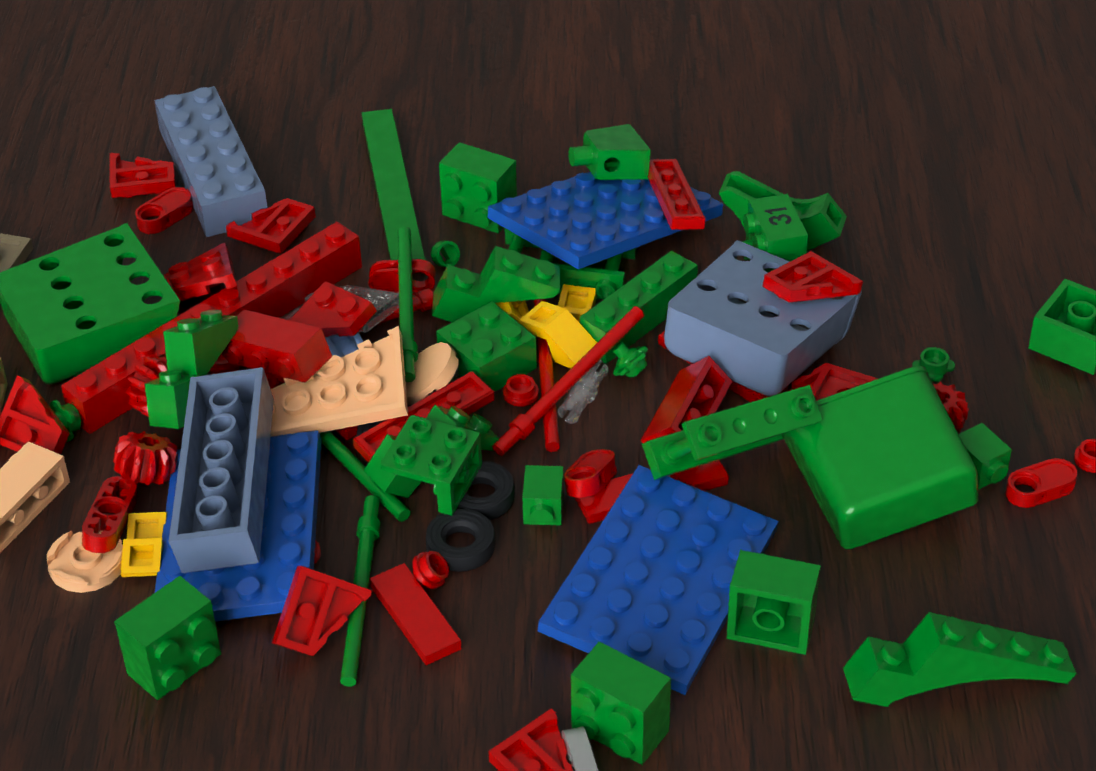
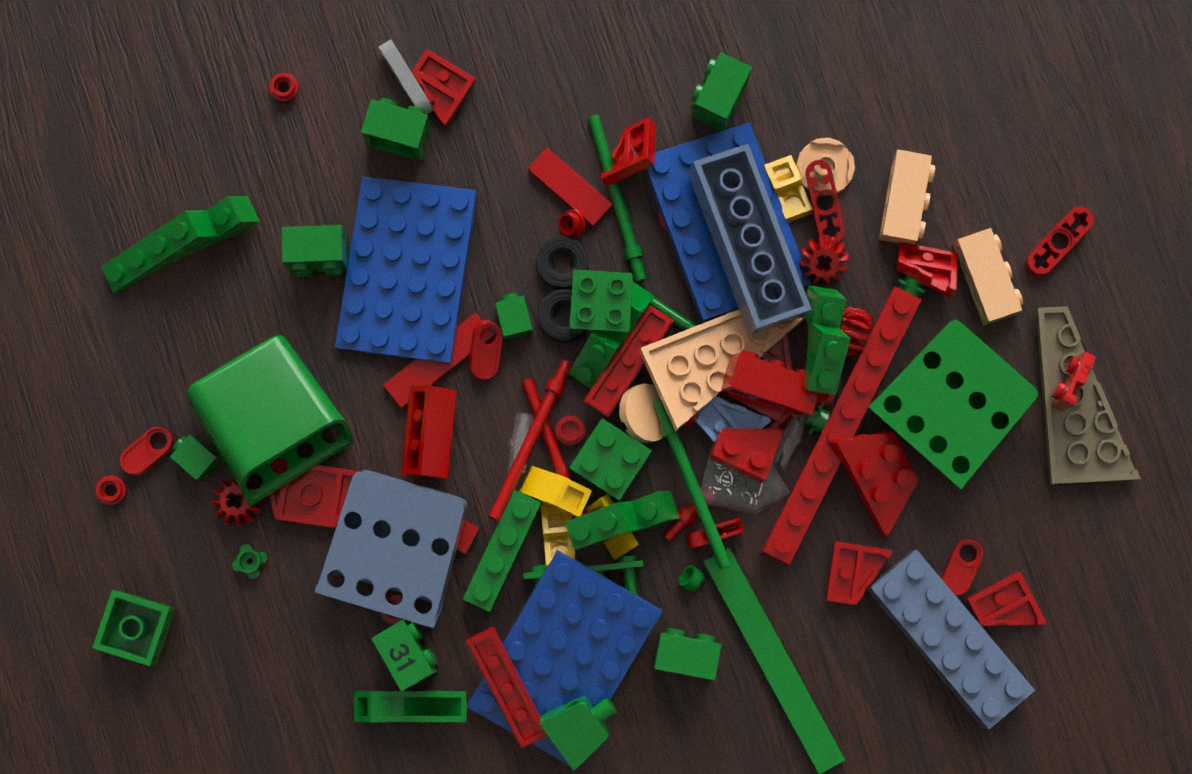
camera: 160 degrees right, 40 degrees up
(630, 360) = (490, 485): green plant -> none
(731, 432) = (395, 395): green fence -> none
(811, 279) = (355, 574): red wing -> none

